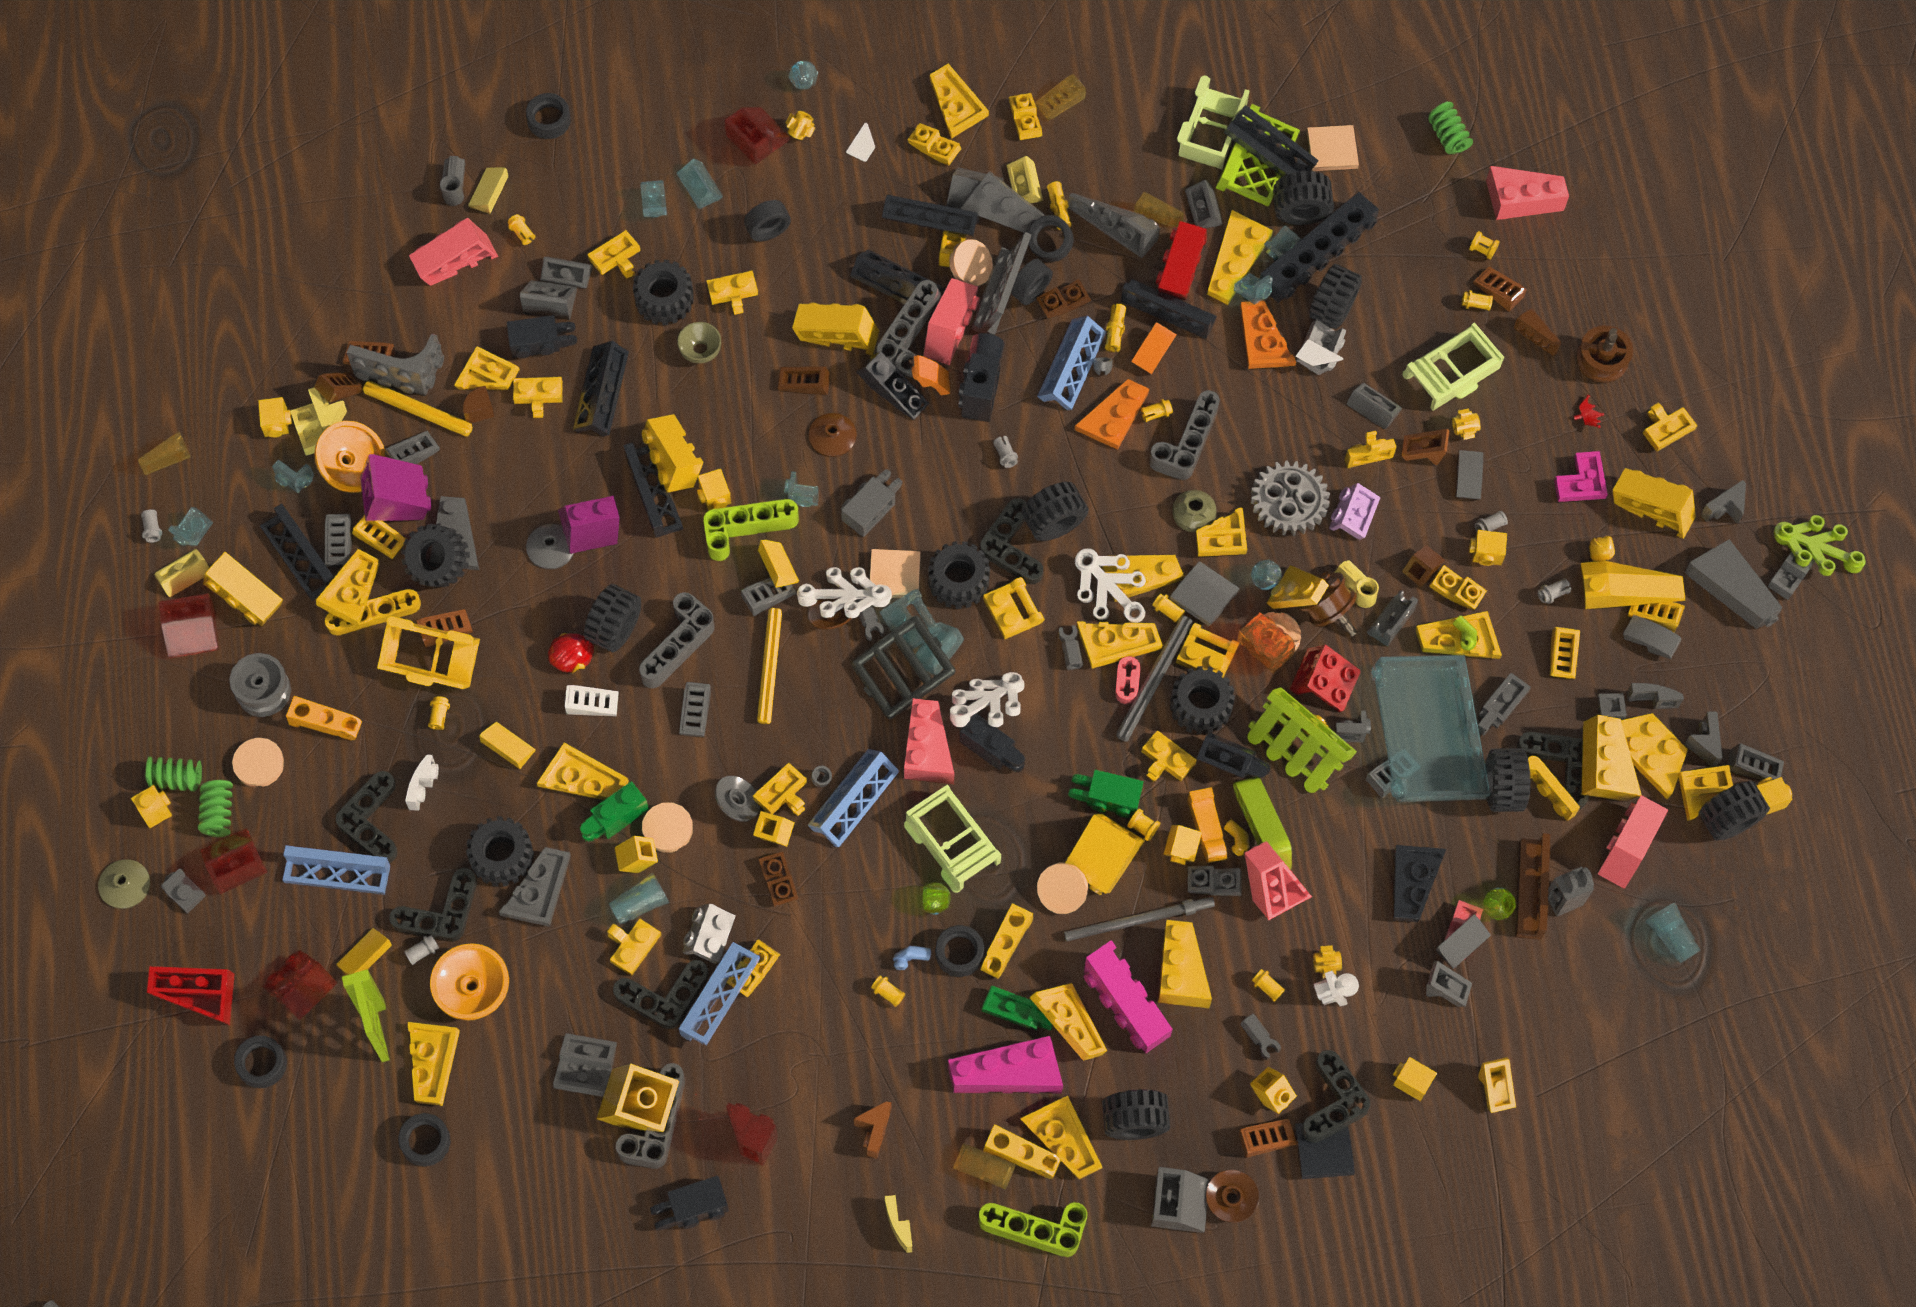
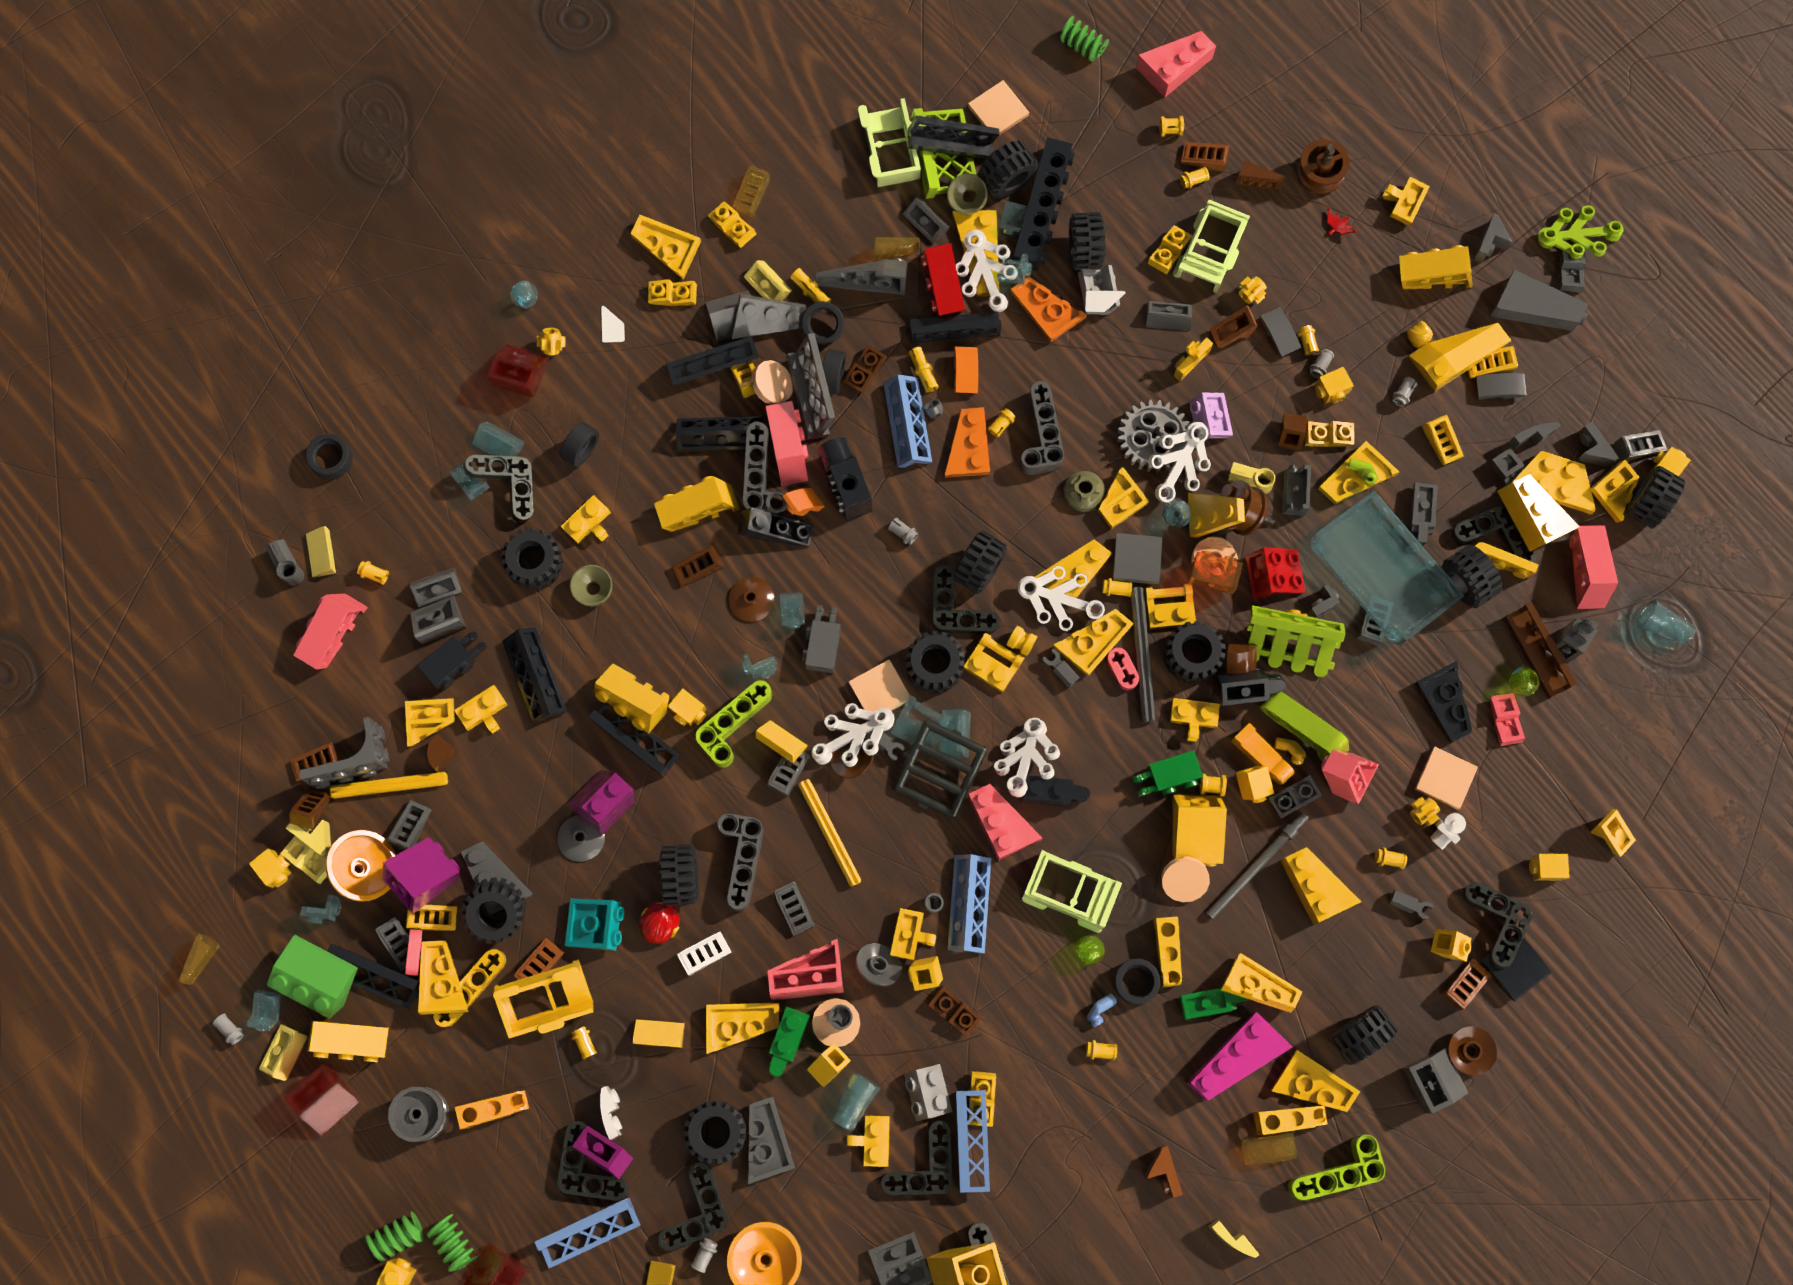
camera: 30 degrees left, 10 degrees up
(248, 522) = (312, 977): none -> bright green slope
(258, 762) = (459, 1179): light nougat tile -> none
(345, 551) = (413, 952): none -> coral beam
(393, 810) = (603, 1152): none -> magenta slope
(513, 620) = (594, 924): none -> teal plate
(615, 254) = (468, 547): yellow plate -> none
(669, 769) = (808, 975): none -> coral wedge
(673, 813) = (839, 1013): none -> dark grey wheel
(694, 218) = (515, 478): none -> pearl dark grey beam
(753, 1134) = (1076, 1244): clear red slope -> none
(862, 460) = (792, 609): none -> clear light blue bracket
(1050, 602) = (1022, 641): none -> yellow wheel
(1126, 998) = (1292, 941): dark pink wedge -> none
(1226, 270) = (984, 267): none -> white plant
(1242, 730) = (1241, 658): none -> reddish brown brick
(1249, 192) = (960, 186): none -> olive piece
(1301, 529) = (1183, 459): none -> white plant
(1369, 947) = (1446, 778): none -> light nougat tile
(1409, 351) = (1170, 250): none -> yellow slope
(1448, 984) = (1526, 774): dark grey slope -> none
(1463, 942) = (1517, 731): dark grey slope -> none
(1493, 491) = (1308, 340): none -> yellow pin
(1588, 482) = (1374, 286): dark pink plate -> none

